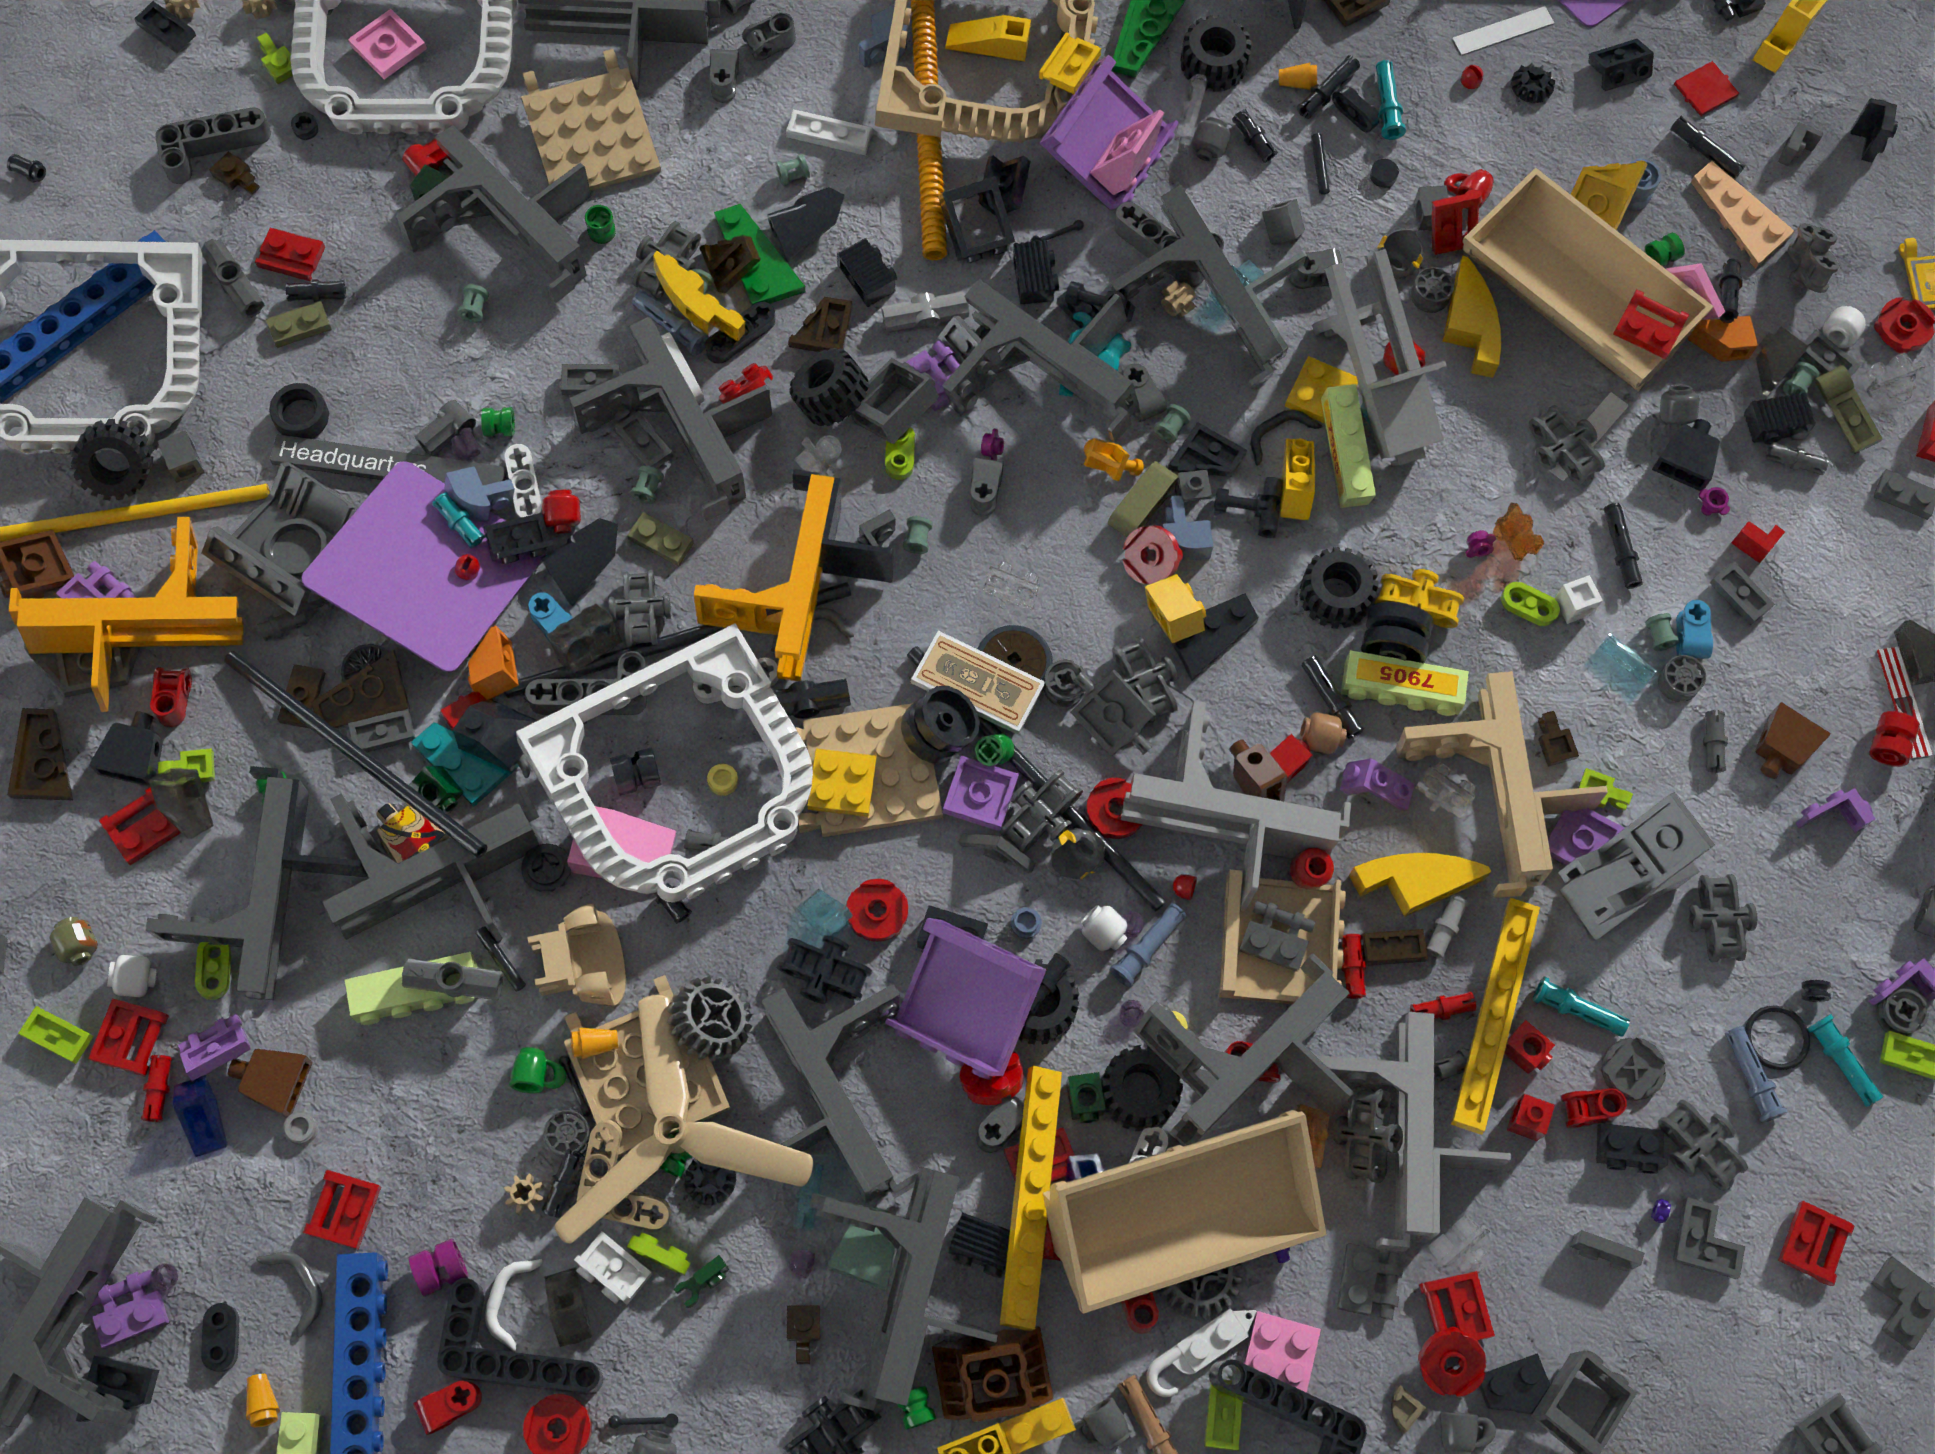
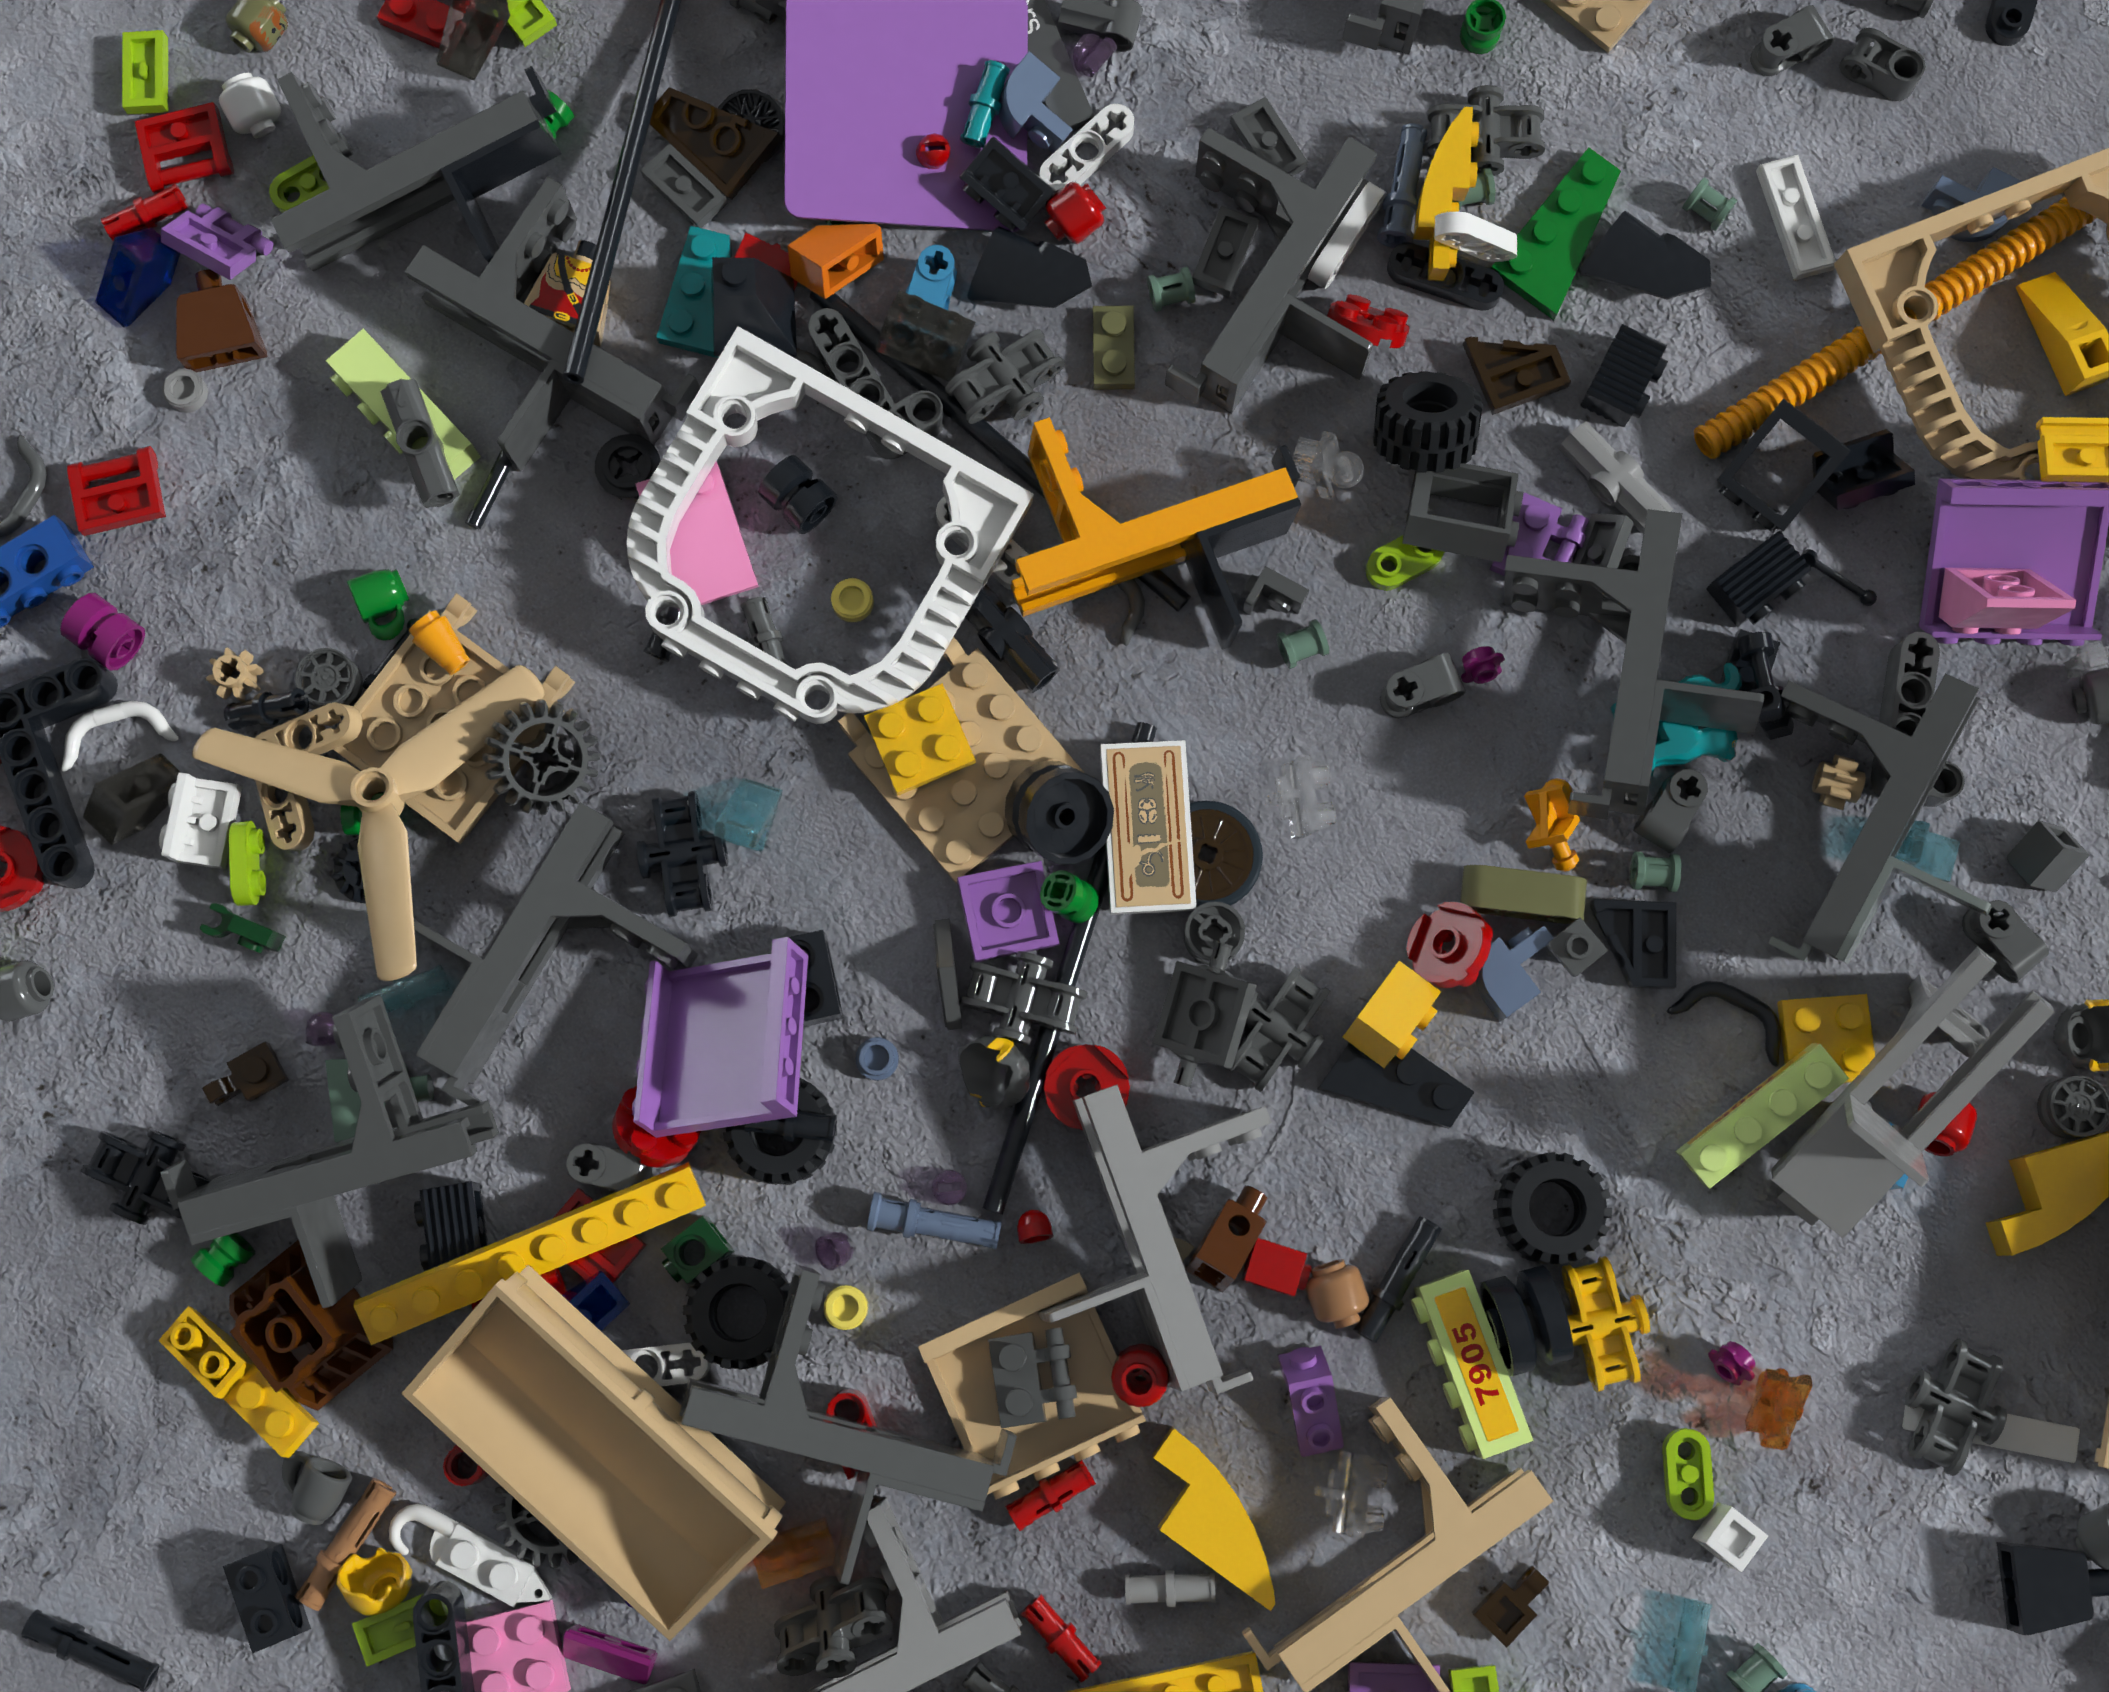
camera: 65 degrees right, 10 degrees up
(305, 686) = (687, 70): dark brown plate -> none
(437, 777) = (644, 287): dark green brick -> none
(498, 421) = (1145, 71): green wheel -> none
(583, 959) = (538, 579): tan piece -> none
(670, 1420) = (73, 987): black hinge -> none
(729, 260) = (1529, 204): dark brown wing -> none
(735, 295) = (1475, 236): none -> white beam
(889, 923) = (767, 867): red plate -> none
(1104, 928) = (920, 1157): white head -> none
(1187, 1414) = (375, 1582): none -> yellow hair
(1263, 506) = (1610, 1051): black bar -> none
(1298, 479) = (1678, 1074): yellow slope -> none
(1311, 1291) = (609, 1653): none -> magenta slope
(1394, 947) = (1104, 1534): dark brown plate -> none
(1626, 556) = (1851, 1559): black pin -> none
(1718, 495) = (2013, 1657): magenta plate -> none

